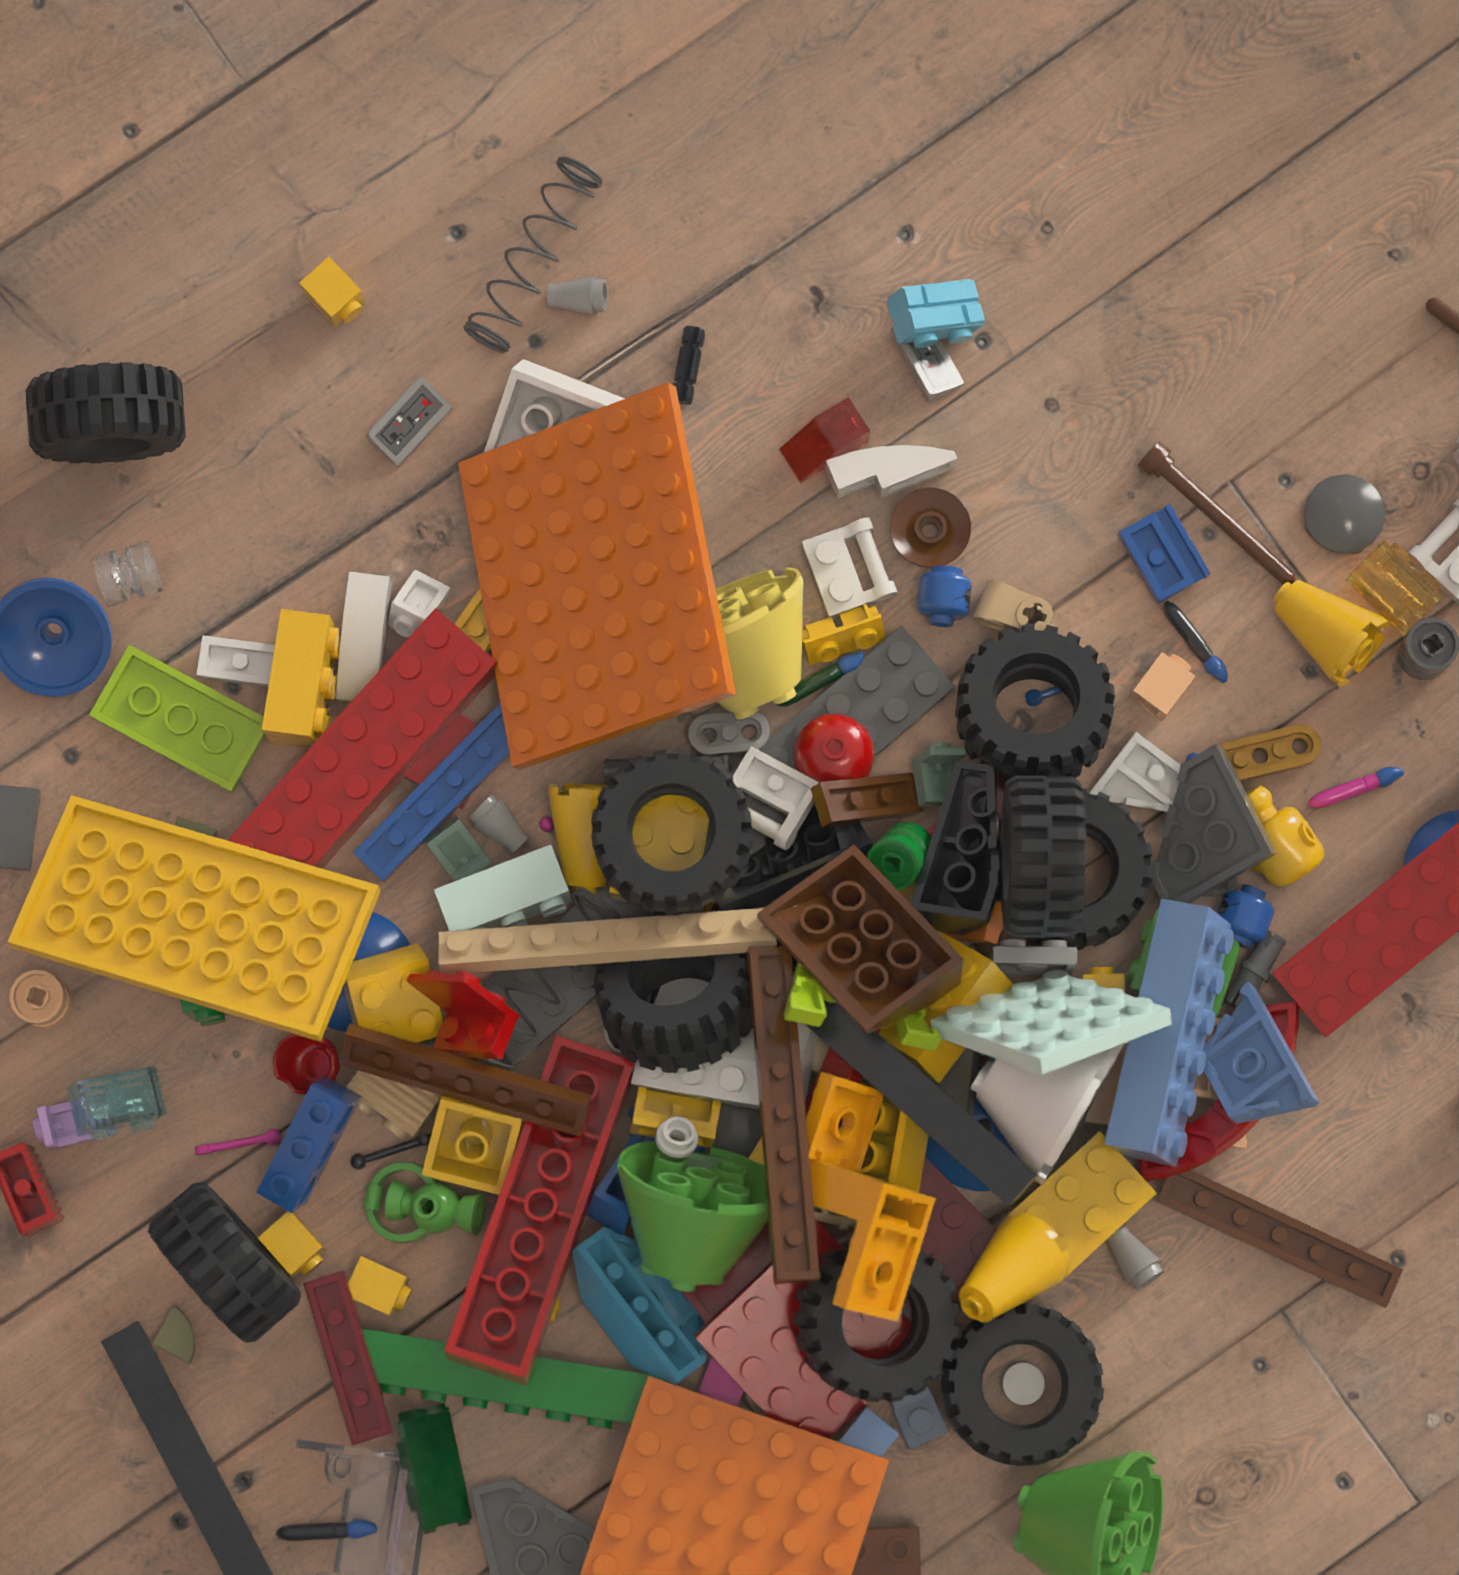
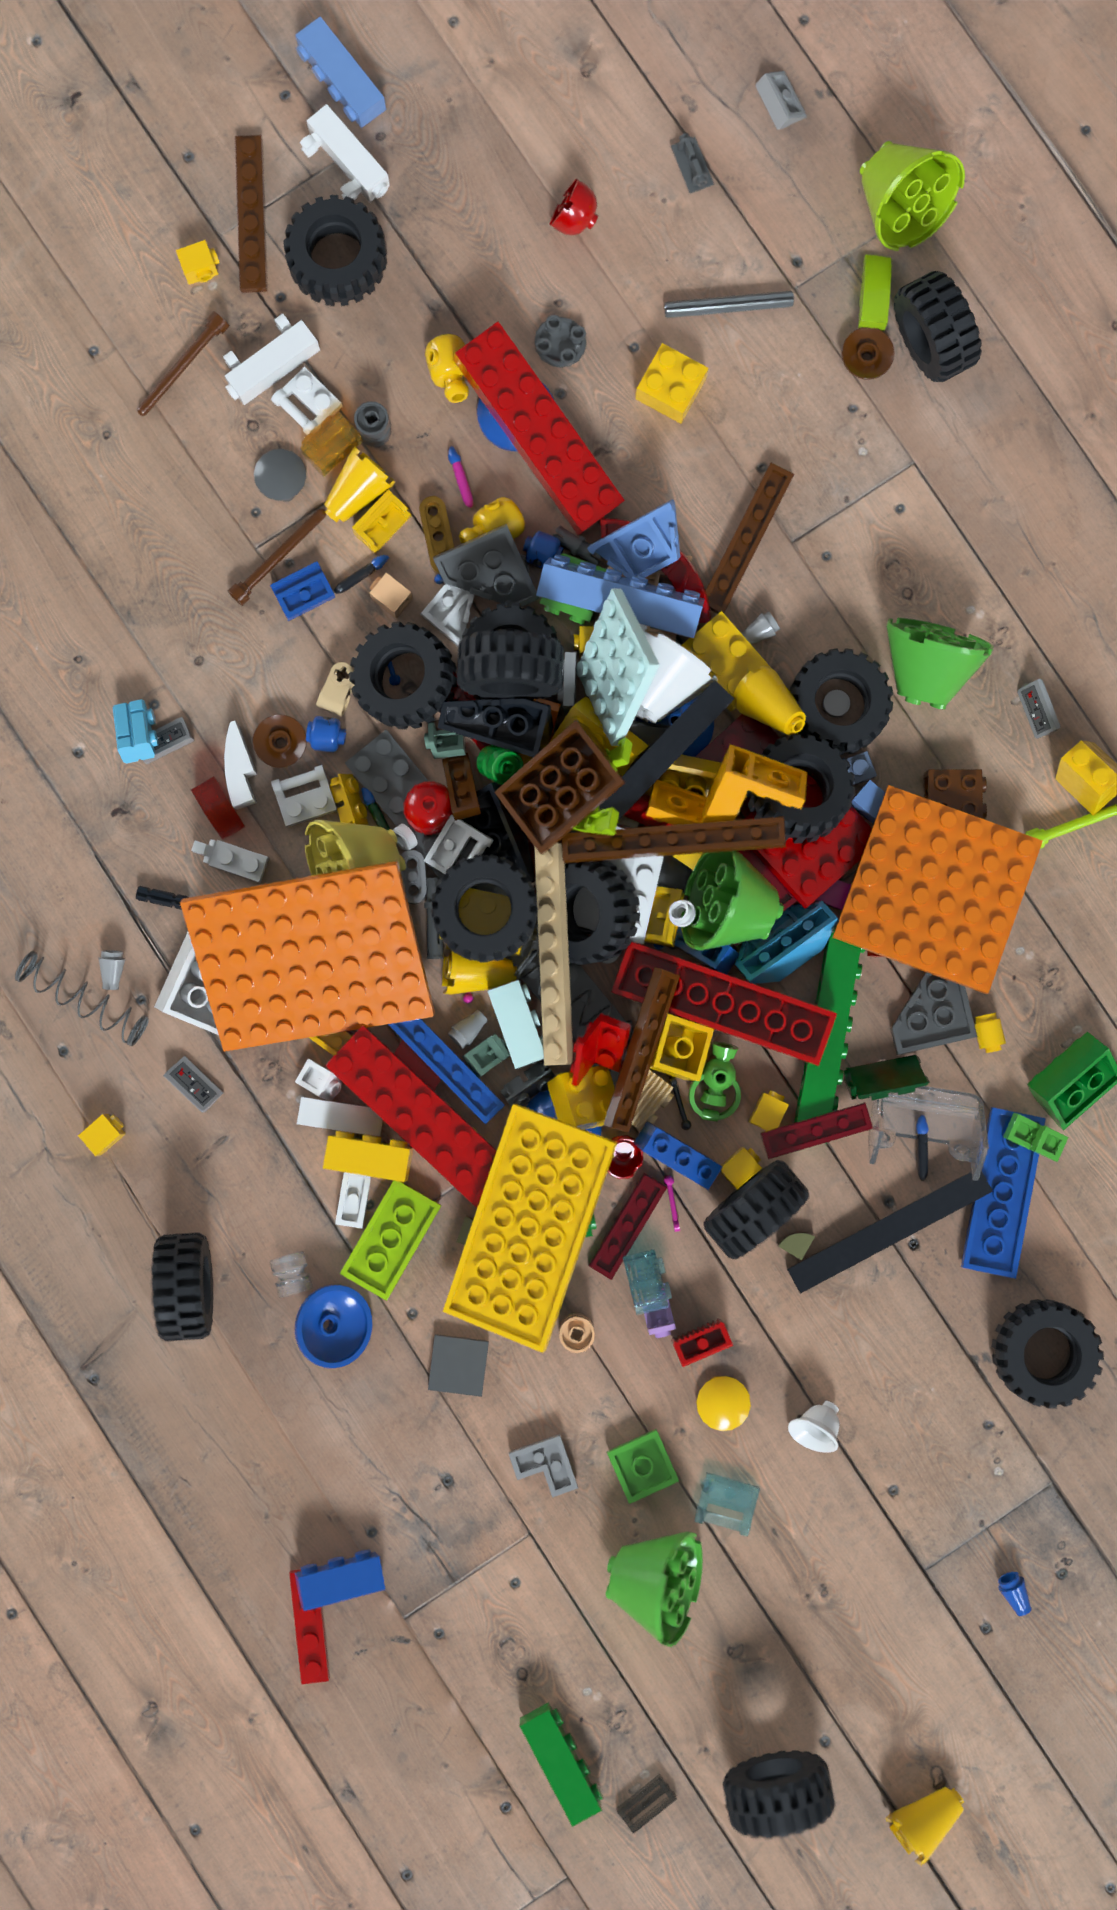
camera: 95 degrees left, 5 degrees up
(203, 1075) = (627, 1226): none -> dark red tile
(403, 905) = (521, 1093): none -> dark grey hinge
(749, 465) = (232, 859): none -> white hinge
(788, 719) = (405, 837): none -> white tile
(1277, 668) = (381, 521): none -> yellow hinge

